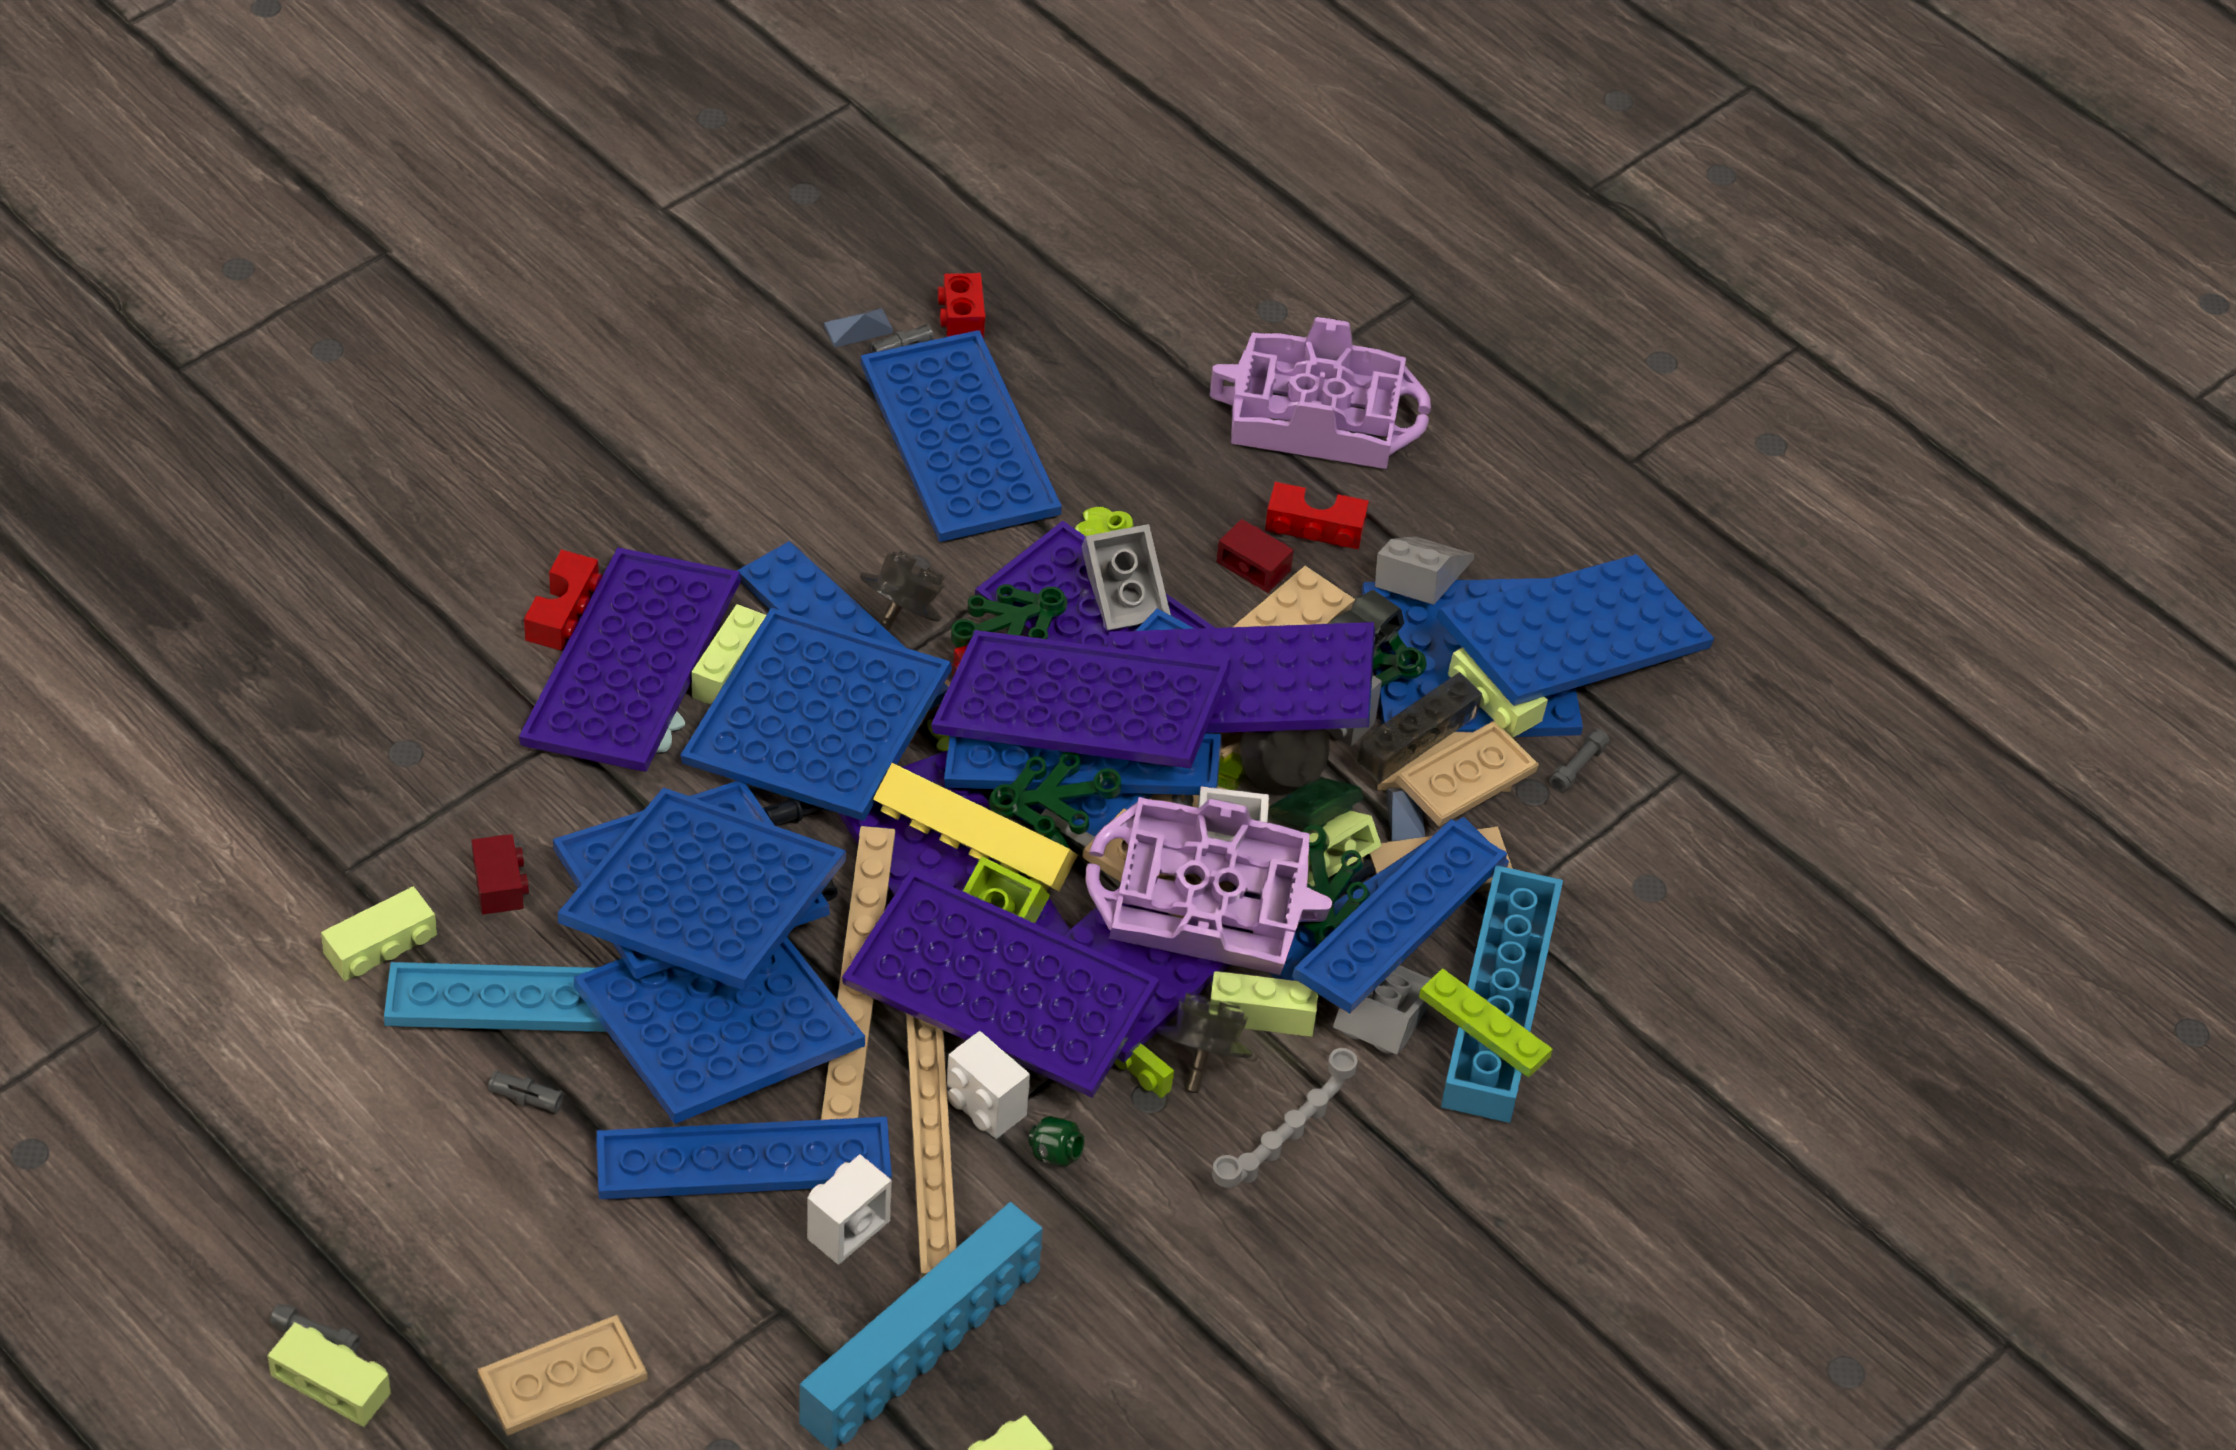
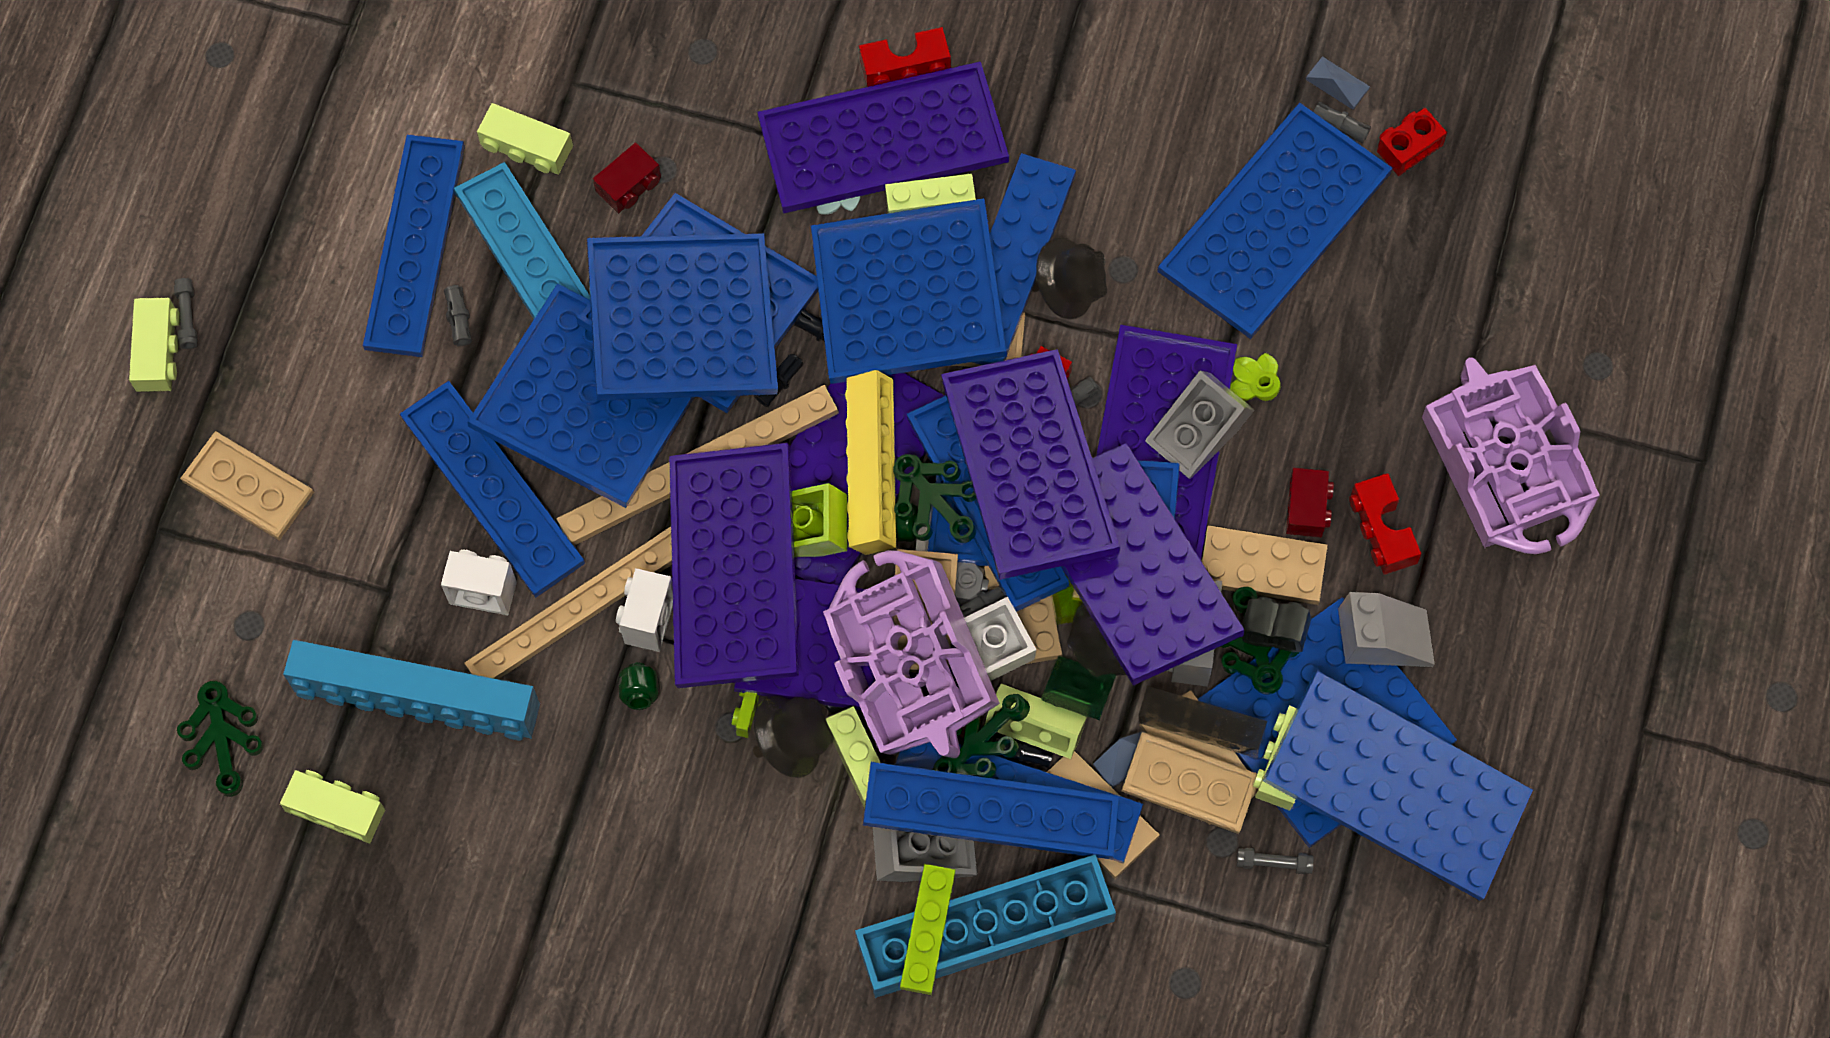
camera: 65 degrees right, 20 degrees up
(415, 1088) = (414, 246): none -> blue plate
(1046, 604) = (1104, 368): dark green plant -> none
(1230, 1171) = (826, 845): light grey bar -> none

